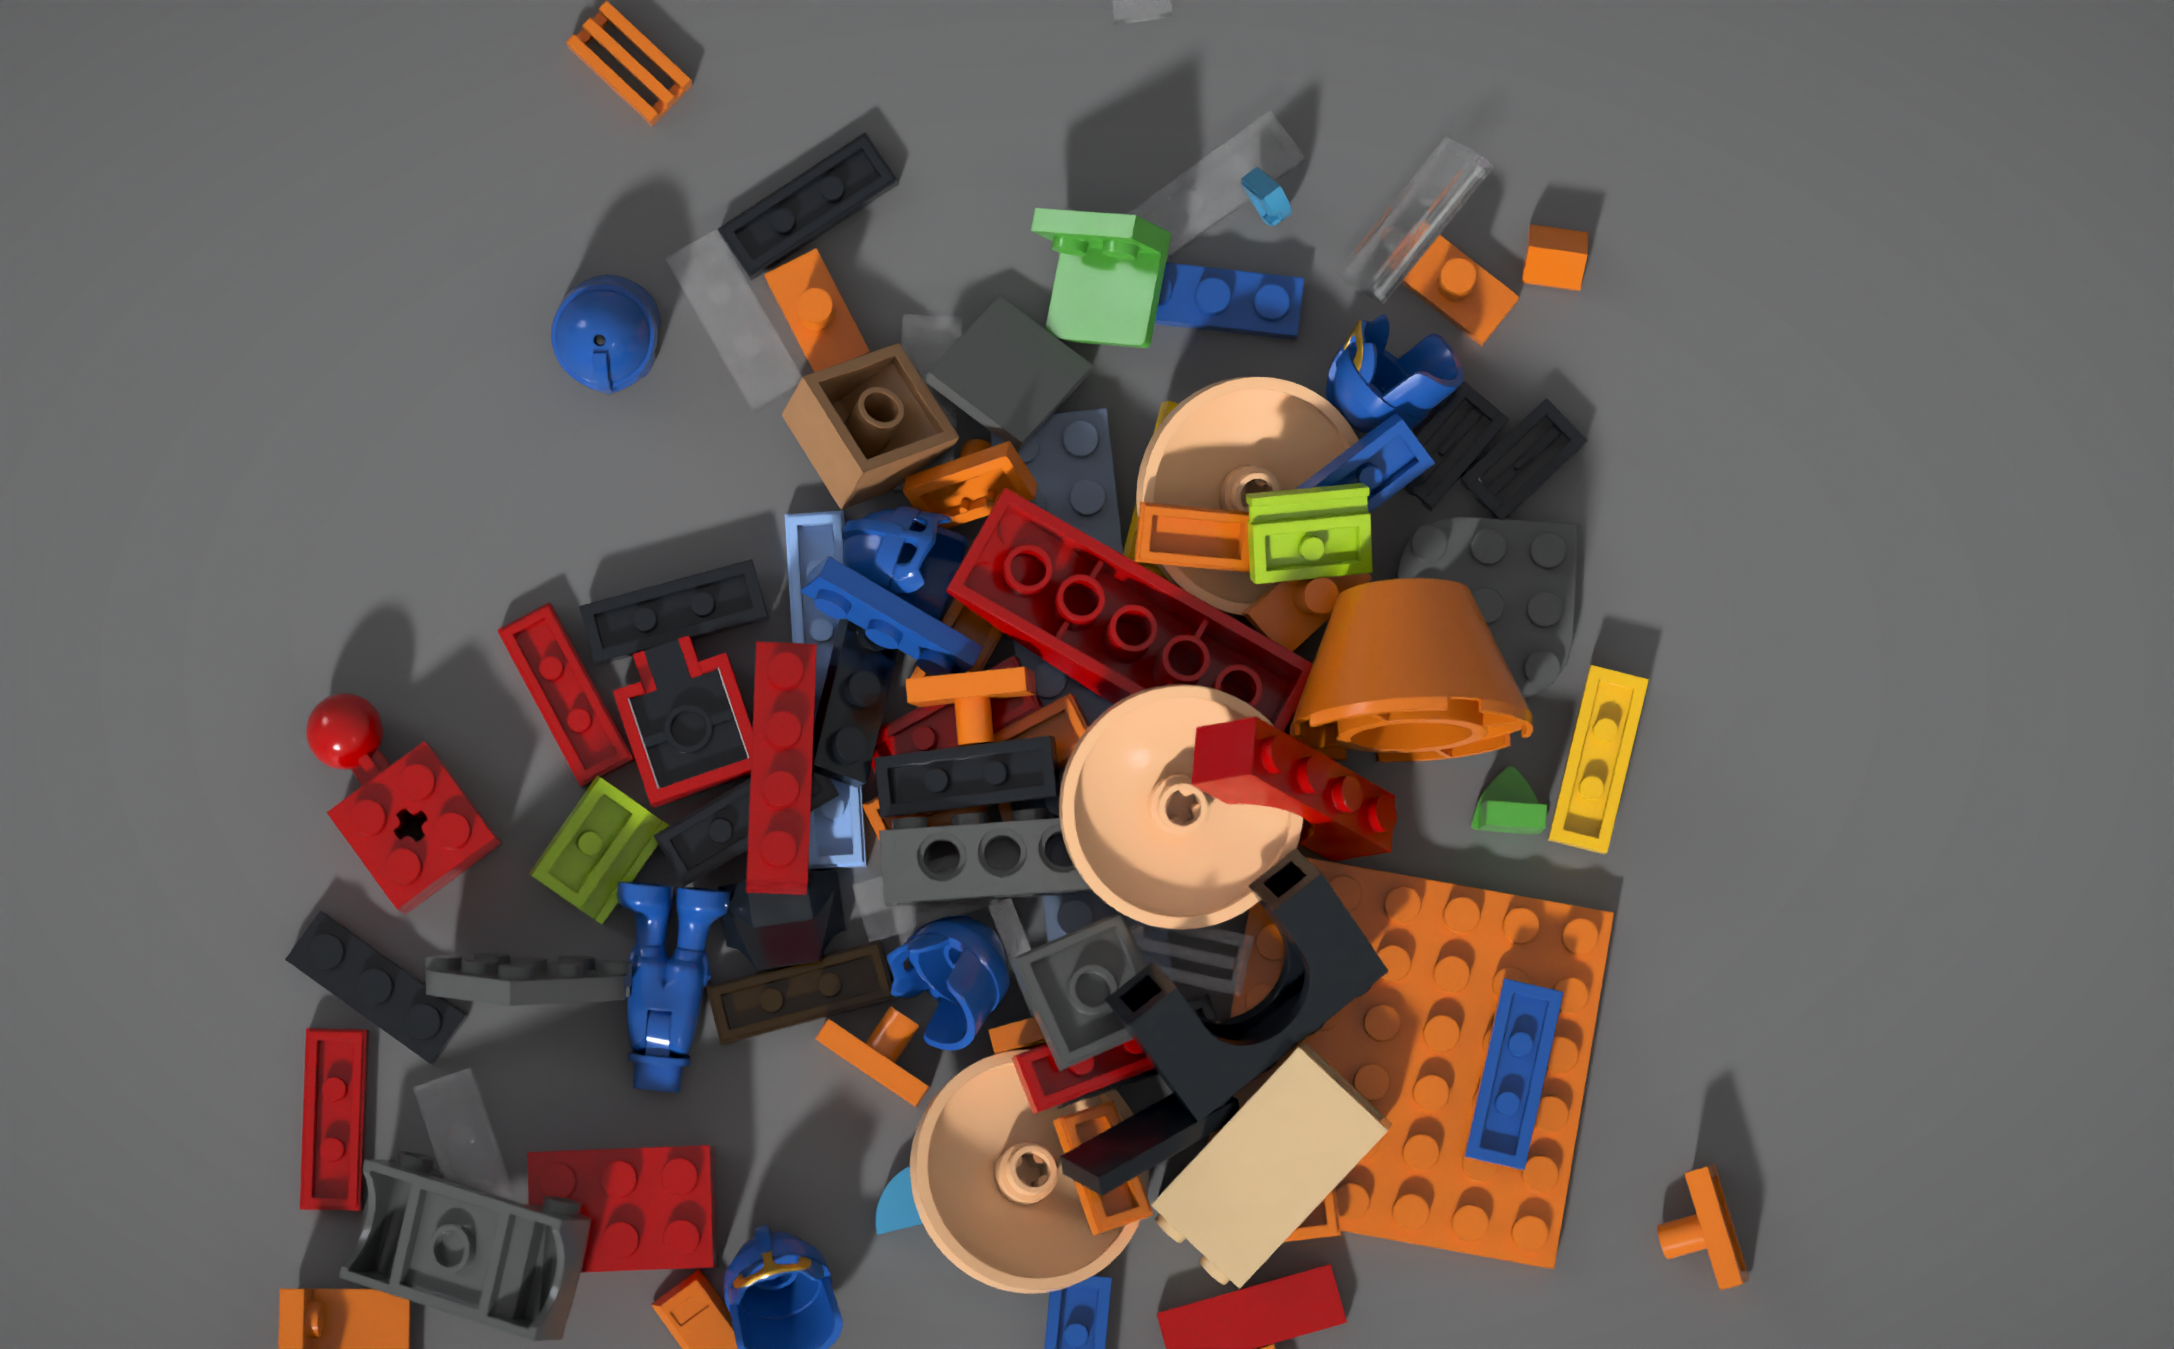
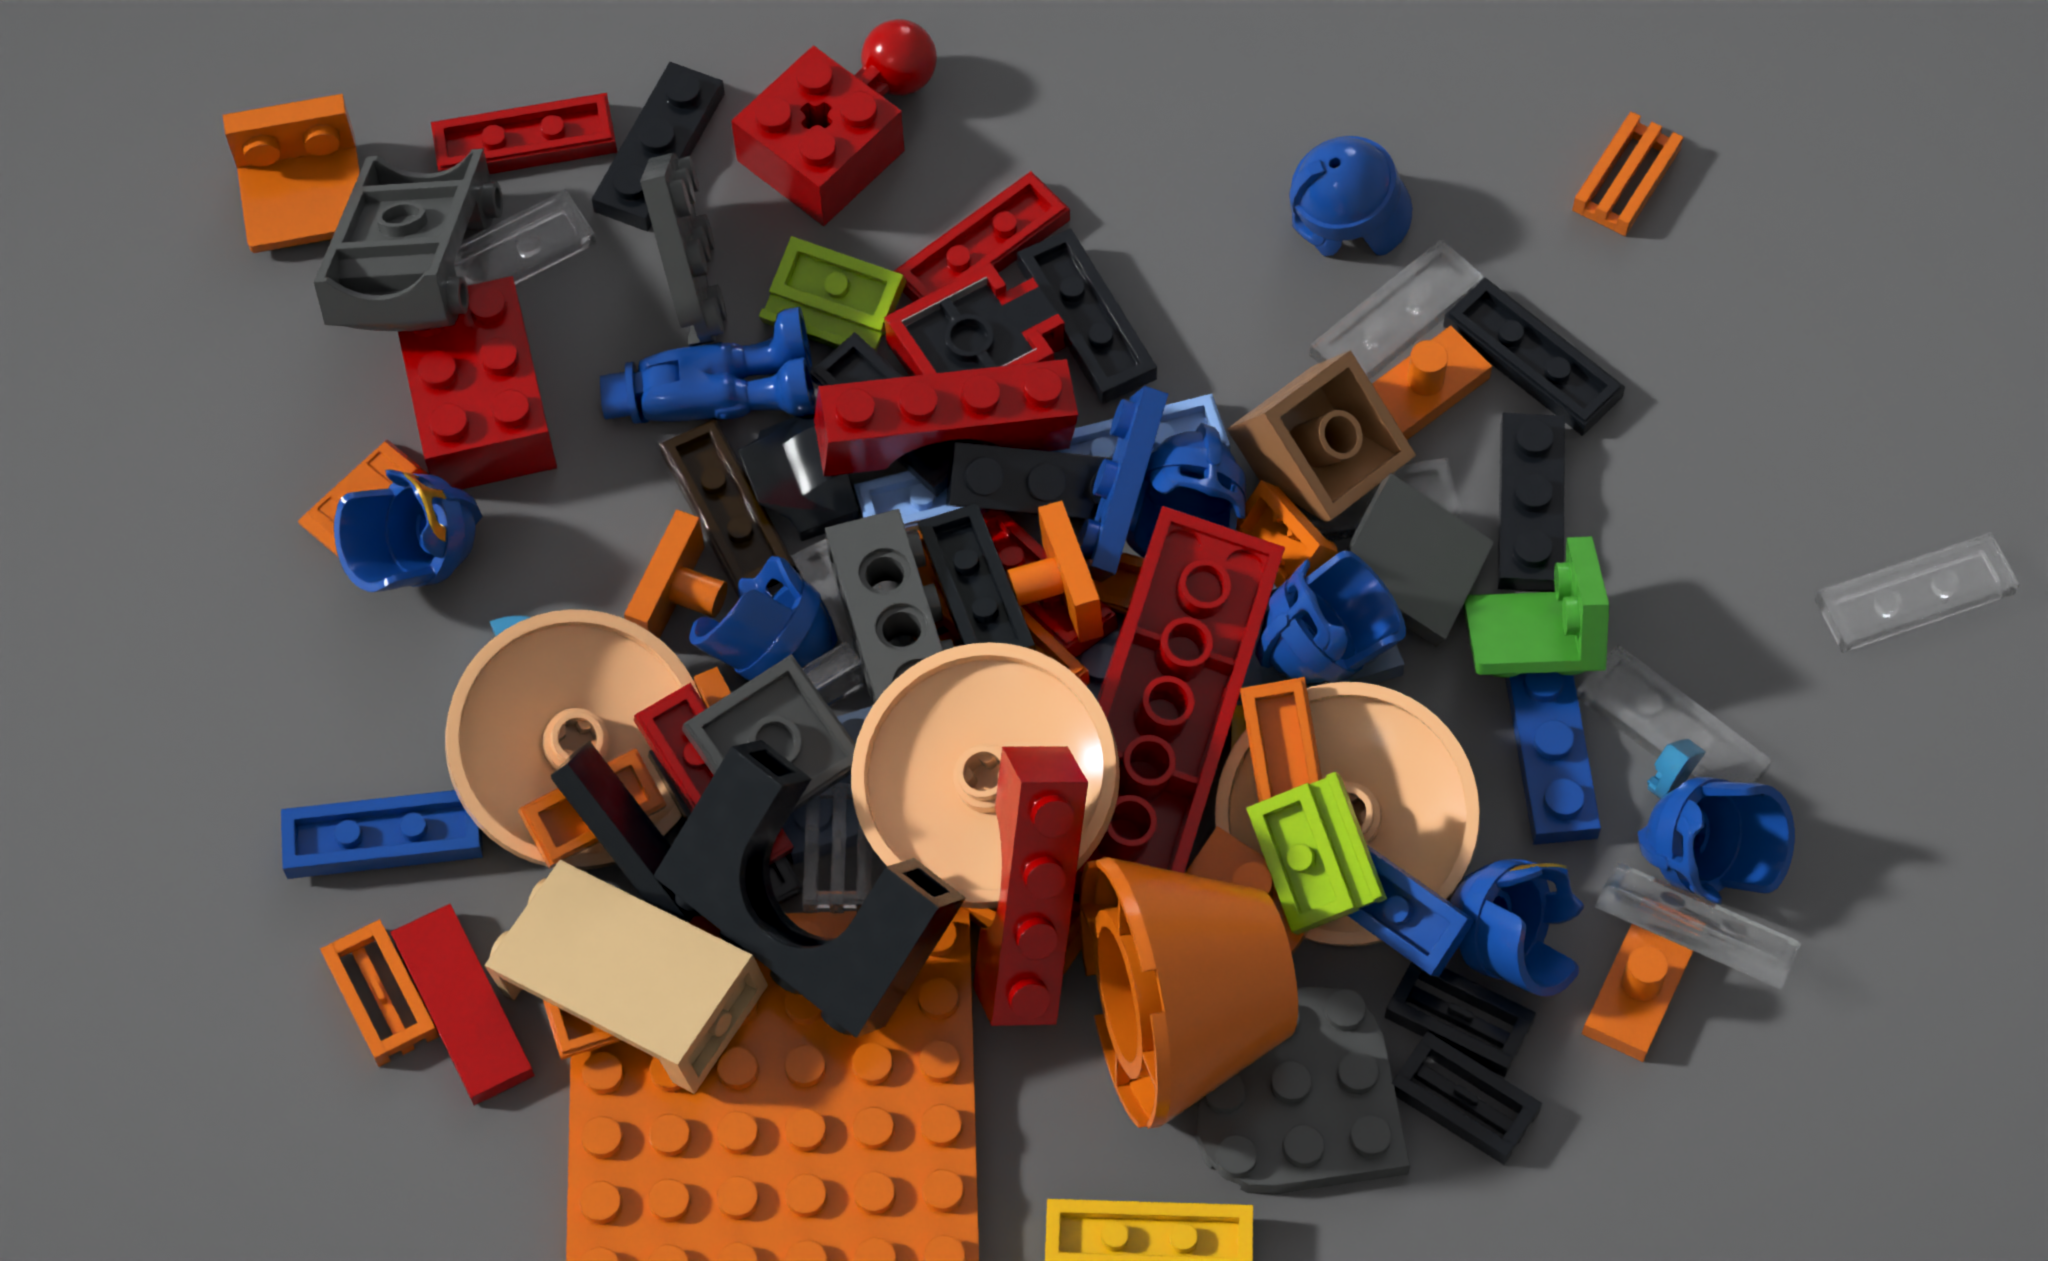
camera: 80 degrees right, 20 degrees down
(961, 249) = (1531, 501): none -> black plate
(1080, 462) = (1329, 621): none -> blue helmet
(1340, 181) = (1720, 837): none -> blue helmet
(1509, 806) = (1075, 1154): bright green tile -> none
(1513, 1074) = (770, 1202): blue plate -> none
(1555, 257) = (1703, 1084): orange slope -> none

